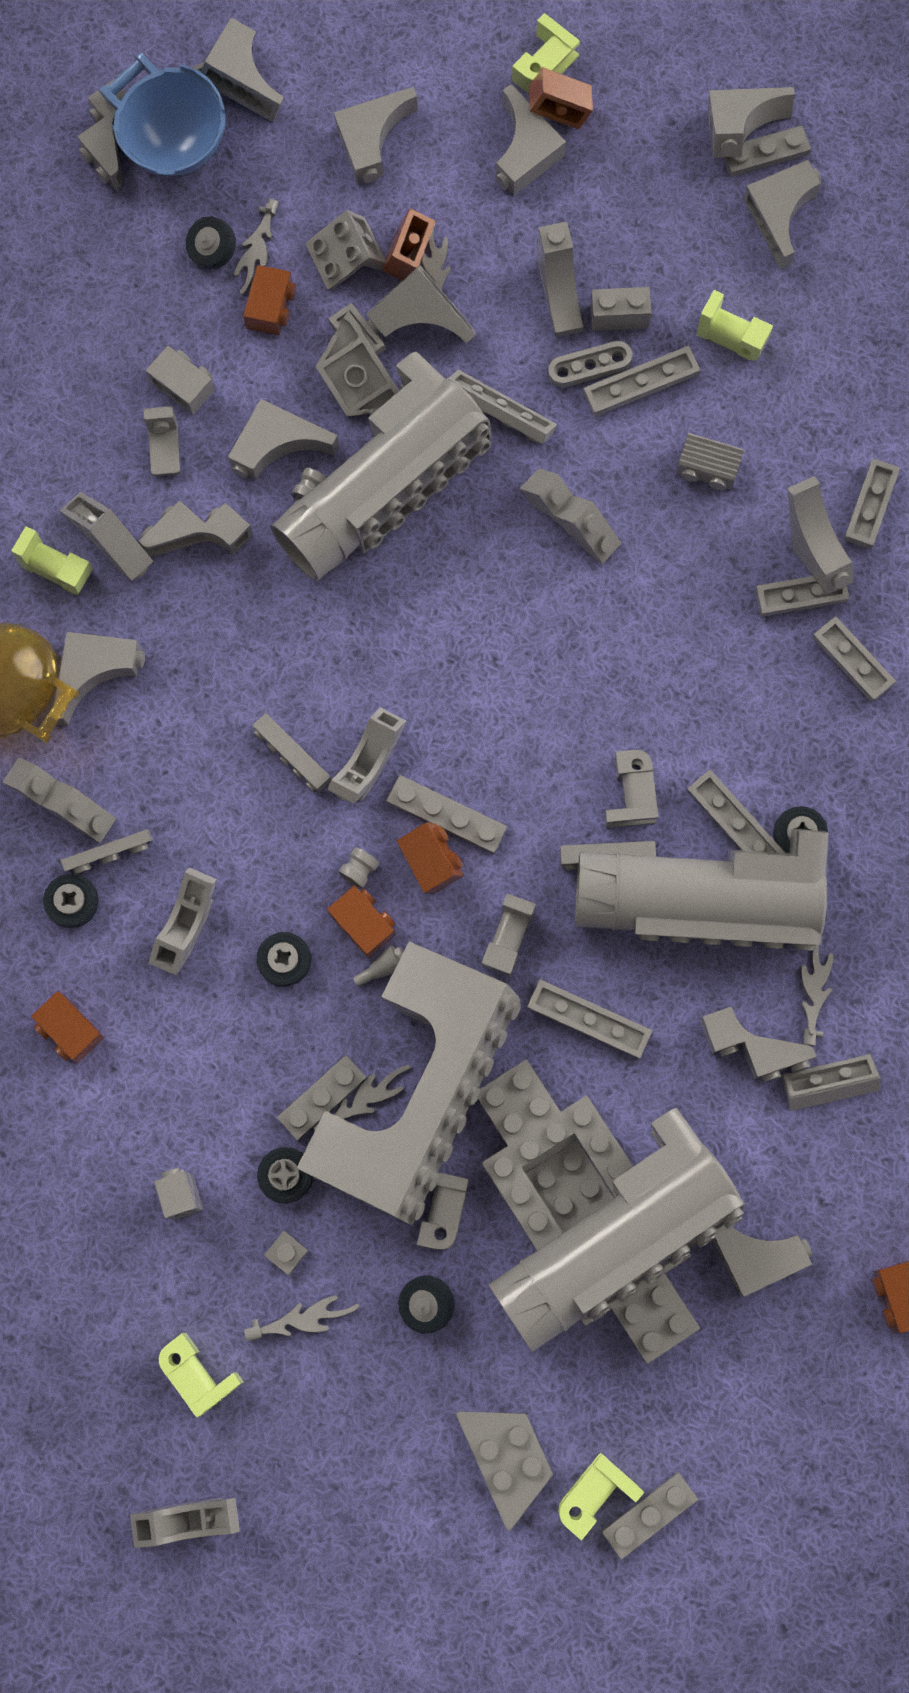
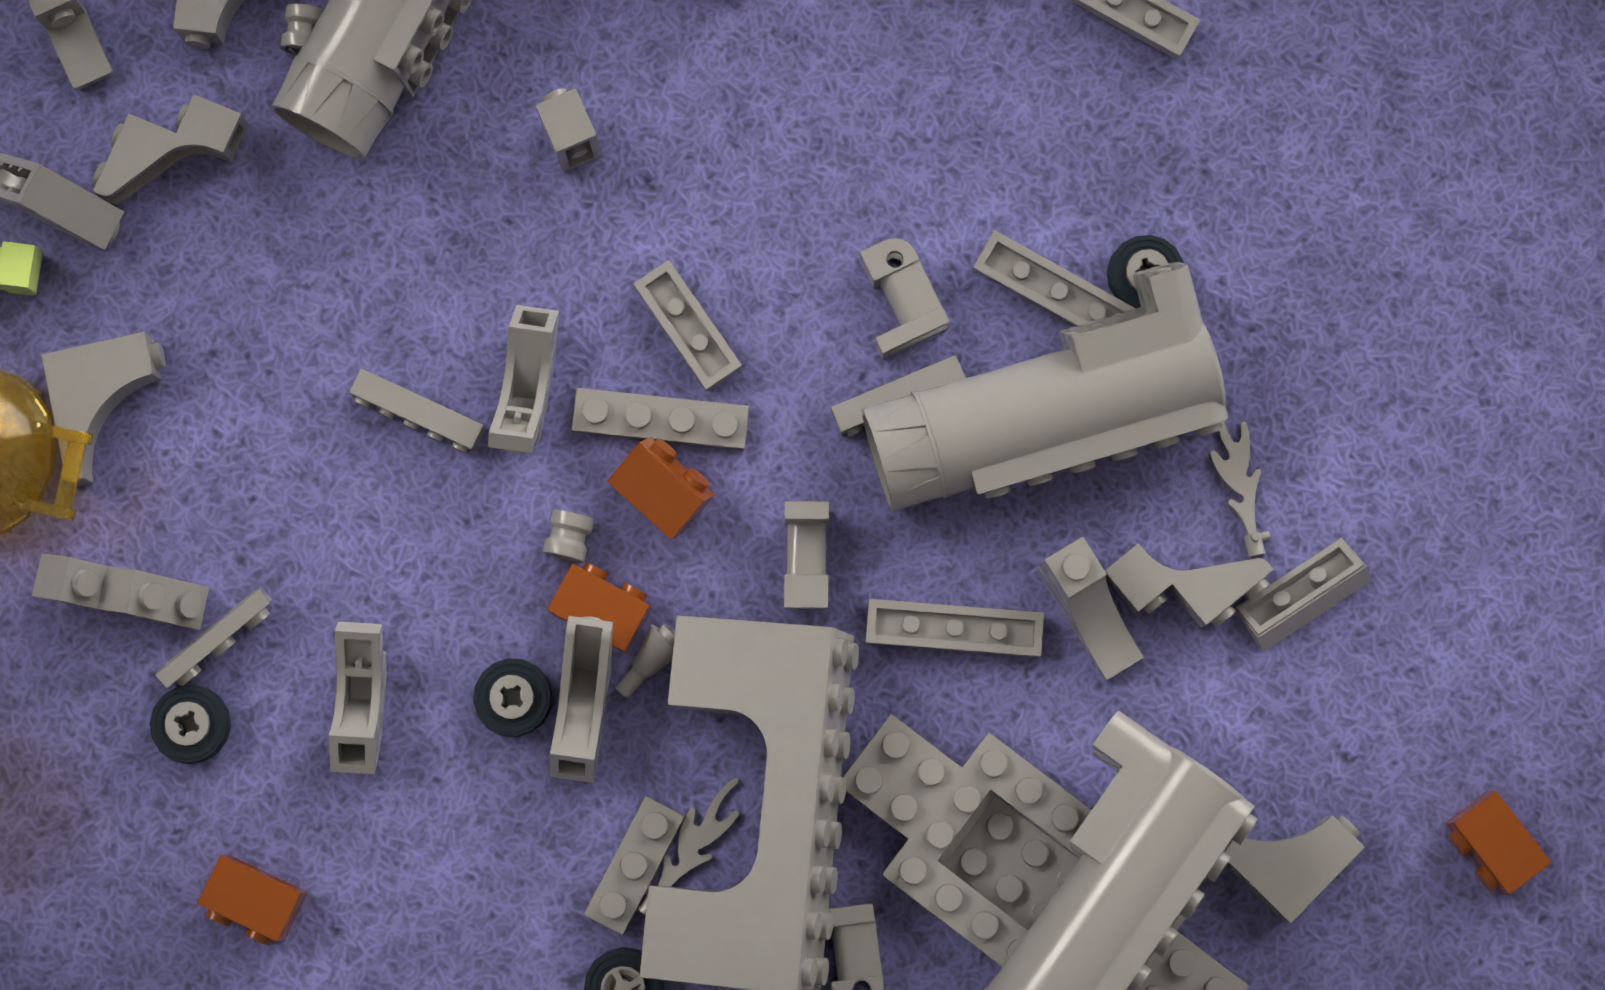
camera: 25 degrees left, 5 degrees up
(328, 974) = (582, 698): none -> light grey arch
(455, 607) = (568, 128): none -> light grey brick
(486, 760) = (687, 325): none -> light grey plate
(681, 1026) = (1084, 598): none -> light grey arch

